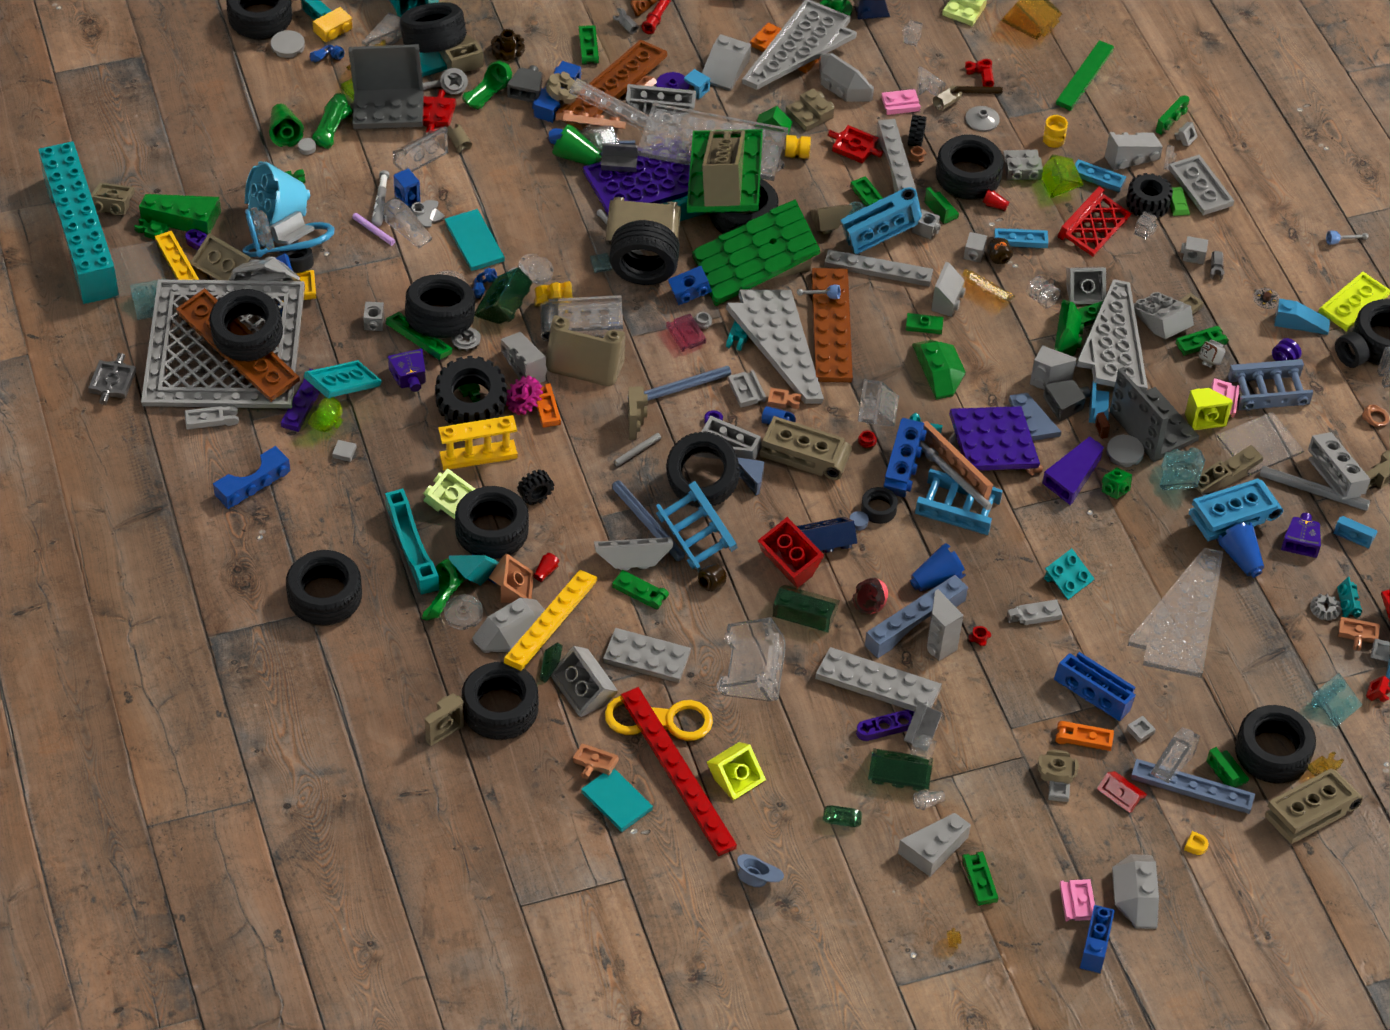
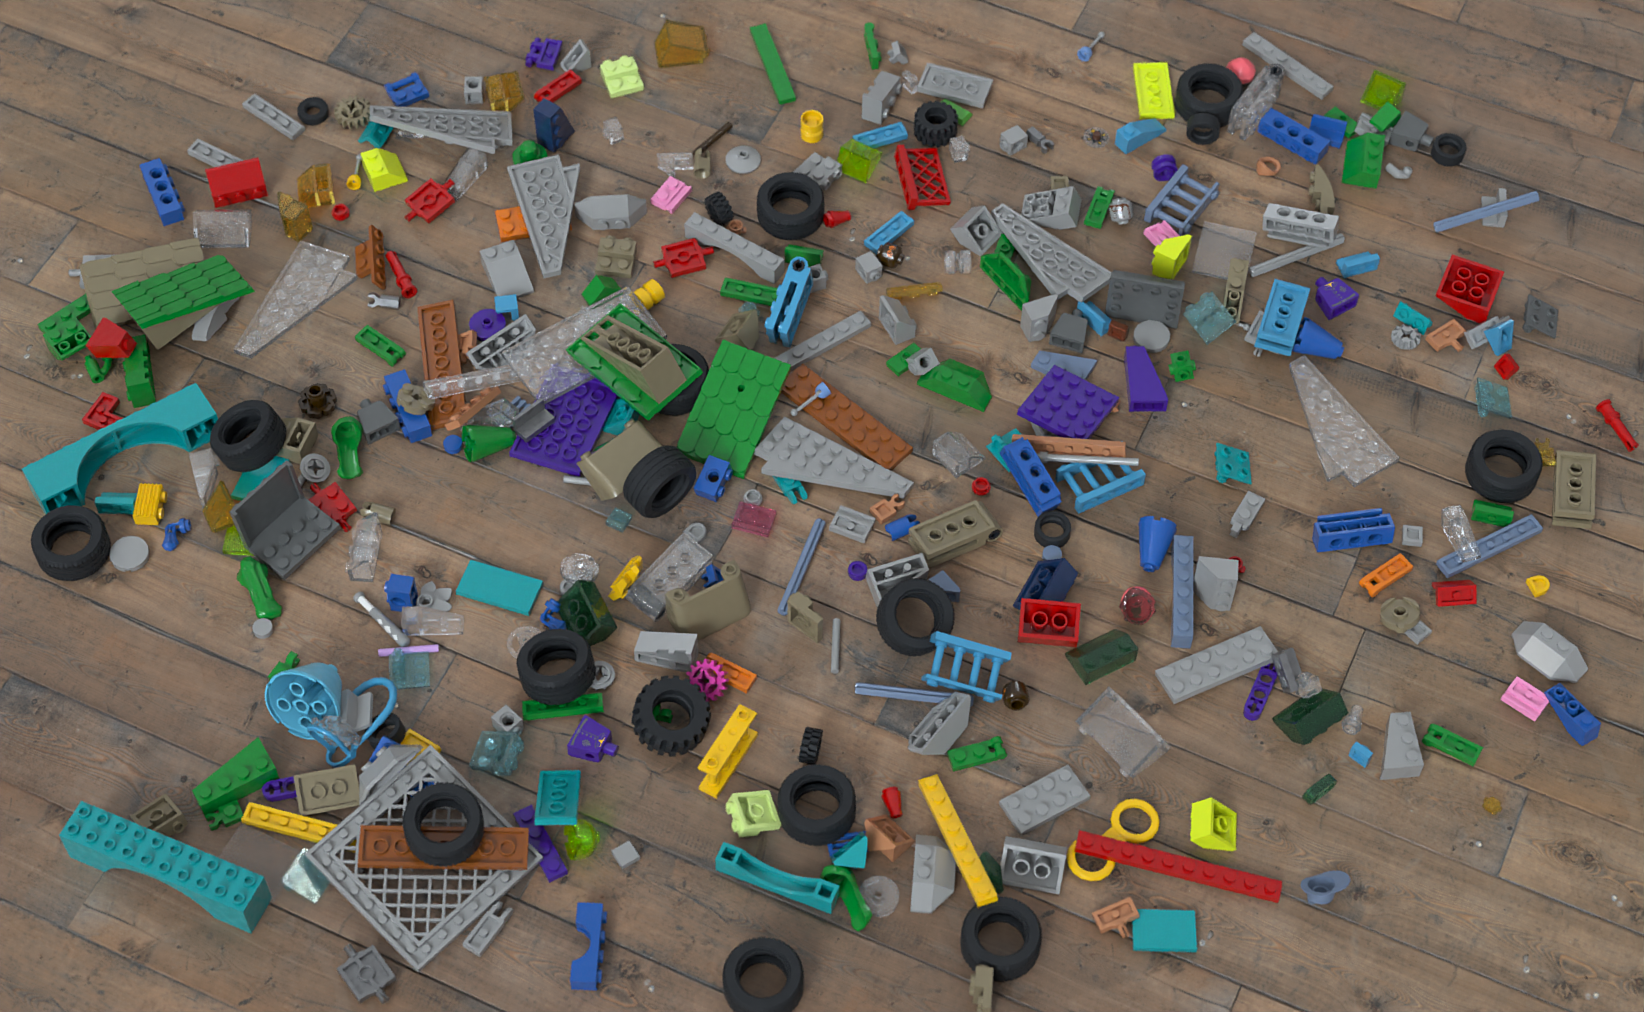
camera: 45 degrees left, 5 degrees up
(284, 126) = (226, 626): green cone -> none
(345, 327) = (497, 752): none -> clear light blue plate
(358, 238) = (409, 669): none -> clear light blue hinge
(639, 310) = (696, 531): none -> light grey tile
(903, 822) = (1360, 754): none -> dark azure plate
(937, 331) = (929, 361): none -> light grey brick
(983, 67) = (696, 116): red bar -> none

